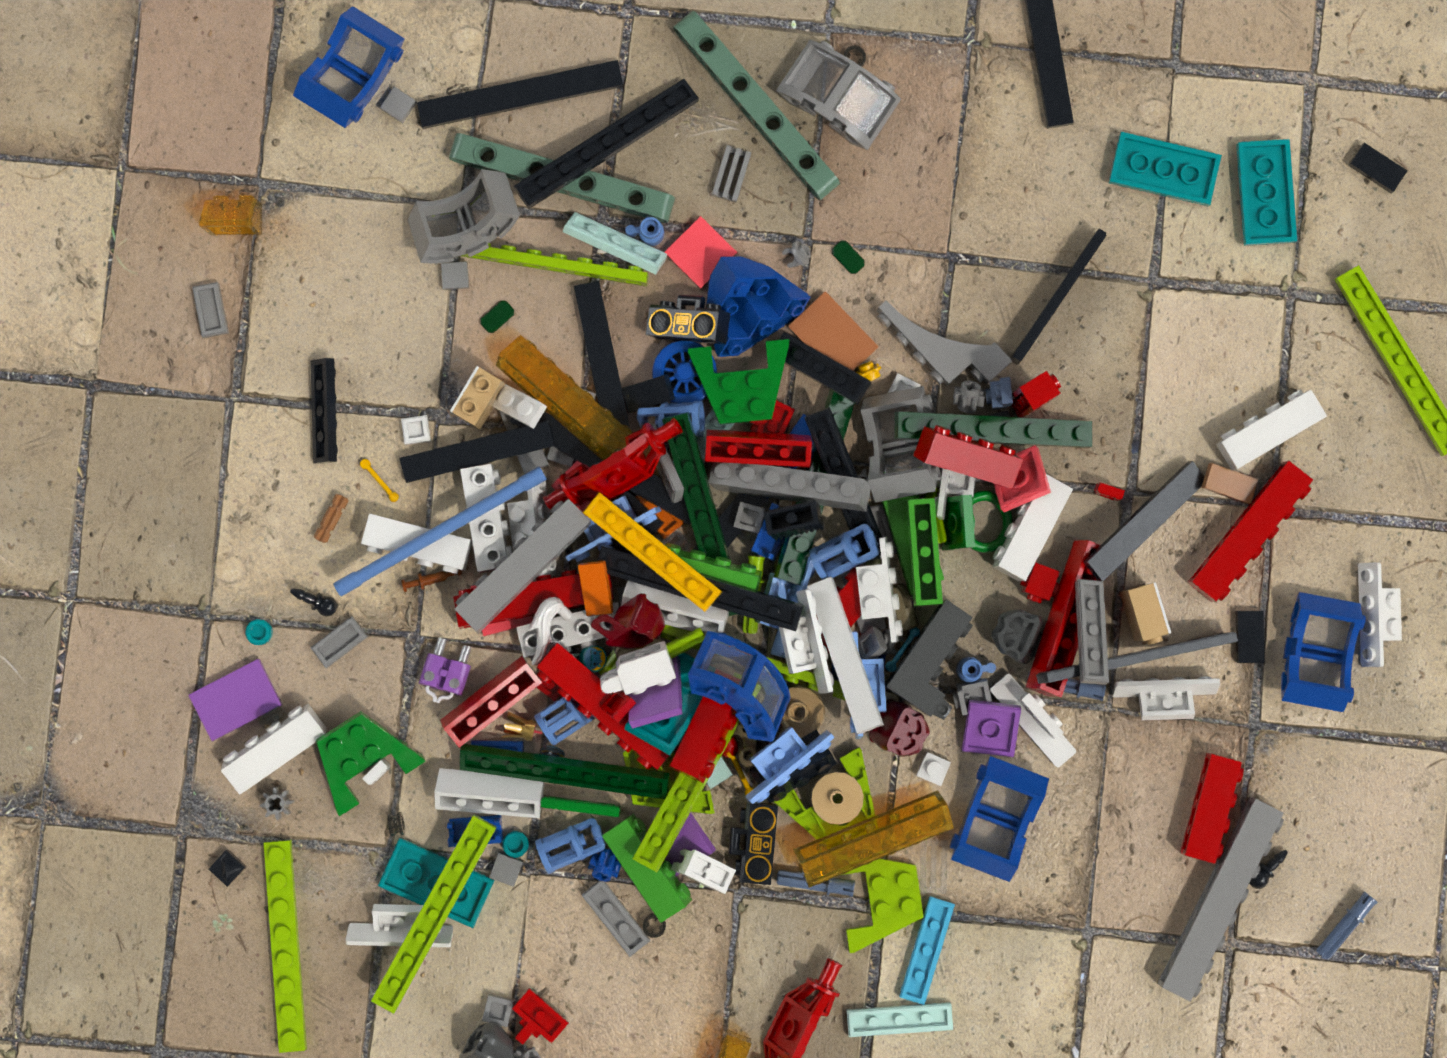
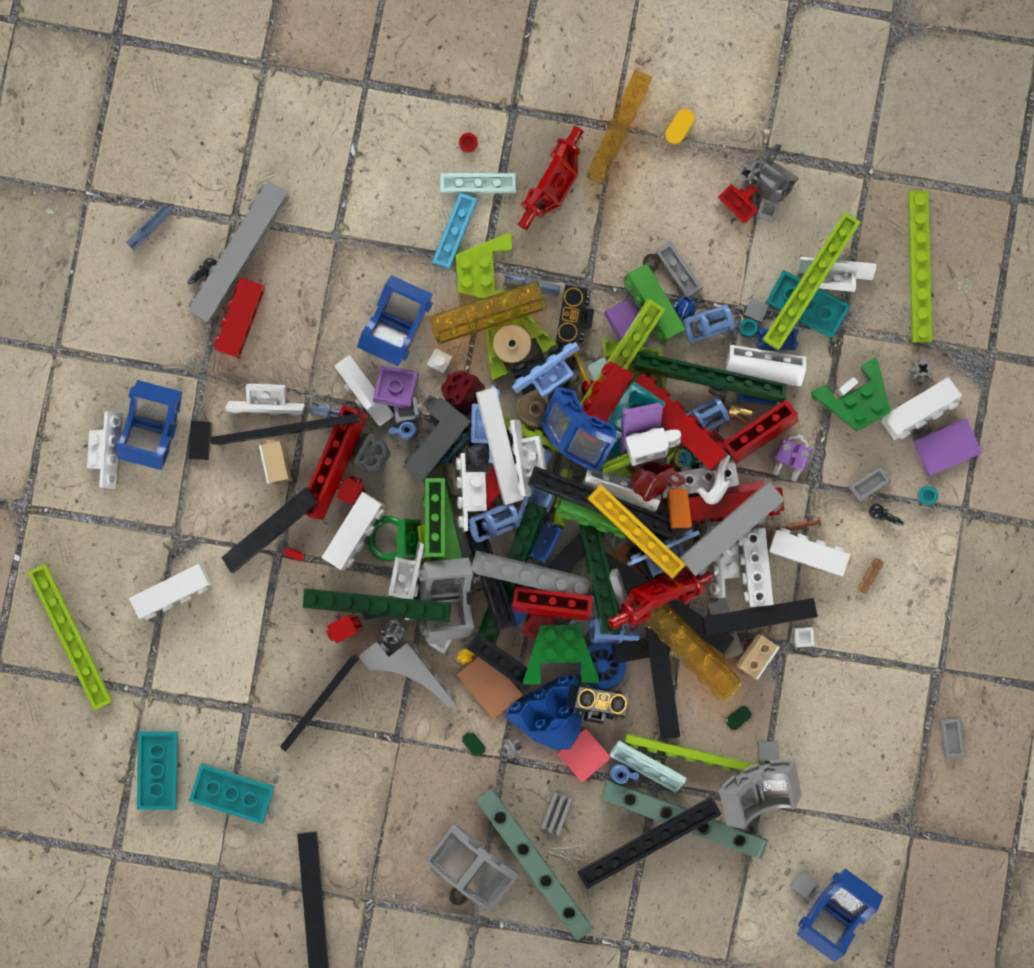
camera: 175 degrees left, 0 degrees up
(227, 867) = (959, 325): black tile -> none
(232, 216) = (933, 807): clear yellow slope -> none
(323, 411) = (871, 655): black plate -> none
(357, 578) = (854, 528): medium blue piece -> none
(366, 464) = (842, 614): yellow hinge -> none
(519, 406) = (726, 648): white plate -> none
(520, 94) = (711, 885): black tile -> none
(580, 806) = (699, 351): green tile -> none
(618, 705) = (668, 420): red tile -> none
(704, 870) = (612, 298): white hinge -> none
(749, 517) = (561, 553): light grey tile -> none
(793, 520) = (530, 548): black brick -> none
(968, 457) = (397, 585): brick -> none
(1000, 393) = (370, 632): sand blue slope -> none
(1029, 484) = (360, 568): coral tile -> none
(1091, 632) = (317, 449): light grey tile -> none
(1229, 483) = (204, 554): medium nougat tile -> none
(1250, 531) = (192, 517): red brick -> none
(1377, 168) = (72, 783): black tile -> none

